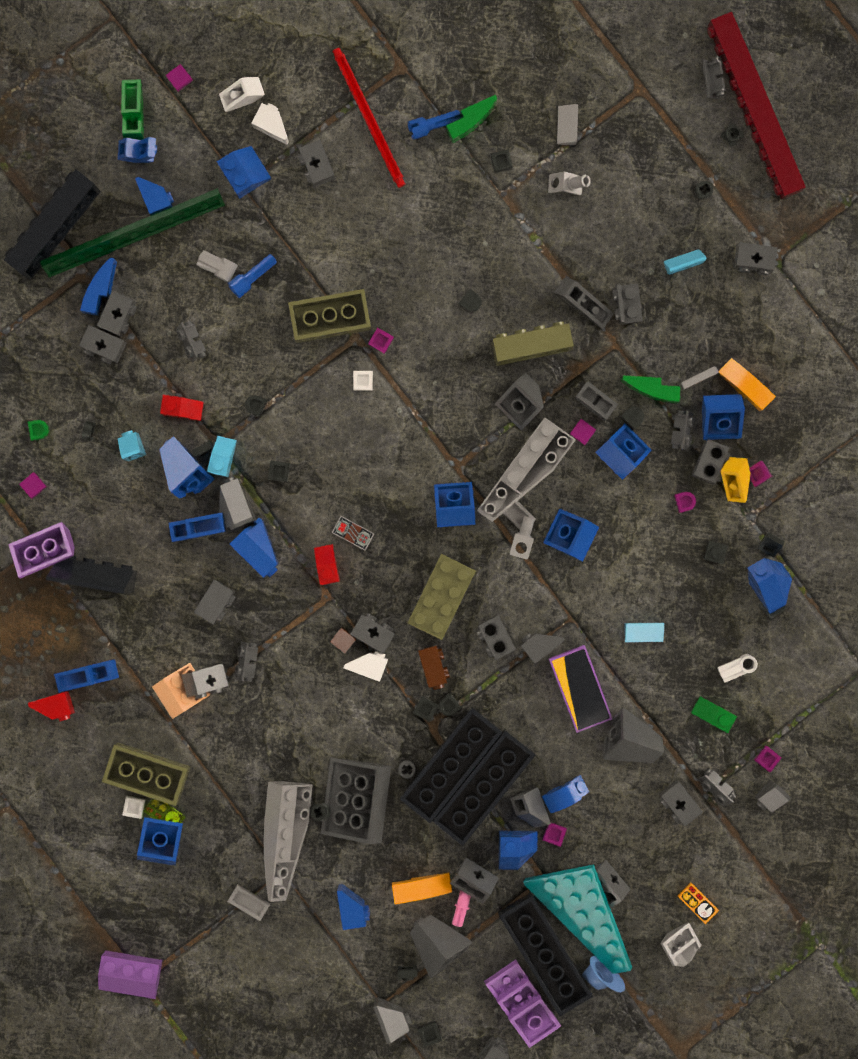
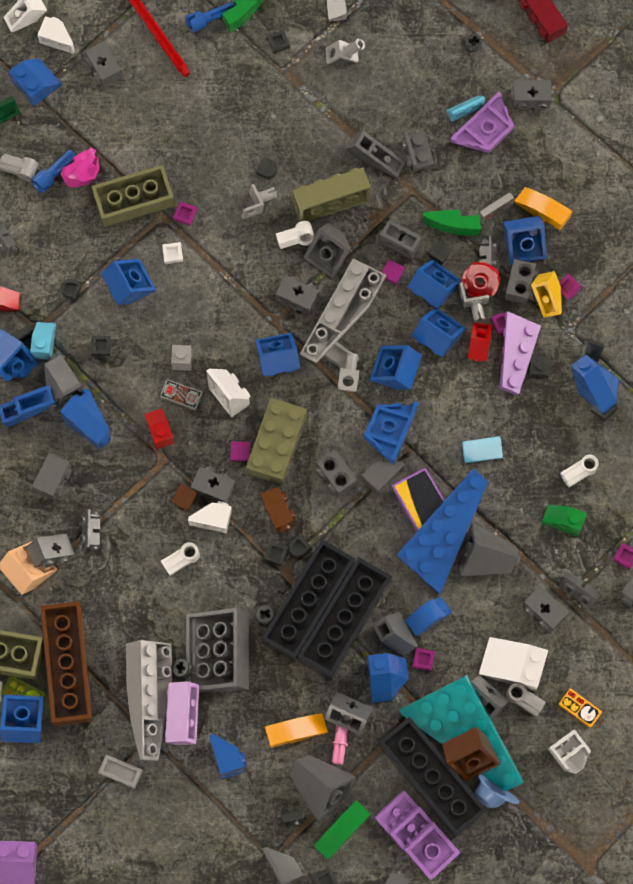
camera: 10 degrees left, 15 degrees down
(208, 794) = (66, 664): none -> reddish brown brick
(280, 280) = (83, 169): none -> dark pink helmet
(314, 406) = (128, 281): none -> blue slope
(314, 858) = (182, 713): none -> lavender brick
(330, 703) = (178, 559): none -> white piece
(358, 496) = (181, 357): none -> light grey brick
(400, 539) = (227, 391): none -> white slope
(404, 600) = (240, 451): none -> magenta tile
(453, 989) = (342, 830): none -> green slope
(458, 334) = (258, 199): none -> light grey bracket
(472, 443) = (303, 302): none -> dark grey brick
(495, 381) = (300, 234): none -> white piece
(555, 599) = (389, 428): none -> blue wing
(585, 939) = (470, 754): none -> reddish brown slope
(588, 719) = (438, 540): none -> blue wing
(620, 503) = (438, 332): none -> blue slope
(641, 851) = (513, 663): none -> white slope
(647, 889) = (526, 701): none -> light grey piece
(659, 519) = (480, 342): none -> red slope
(661, 480) = (475, 304): none -> light grey bracket
(670, 447) = (483, 270): none -> plate
(697, 530) = (518, 347): none -> wing
(702, 287) = (486, 127): none -> medium lavender wing

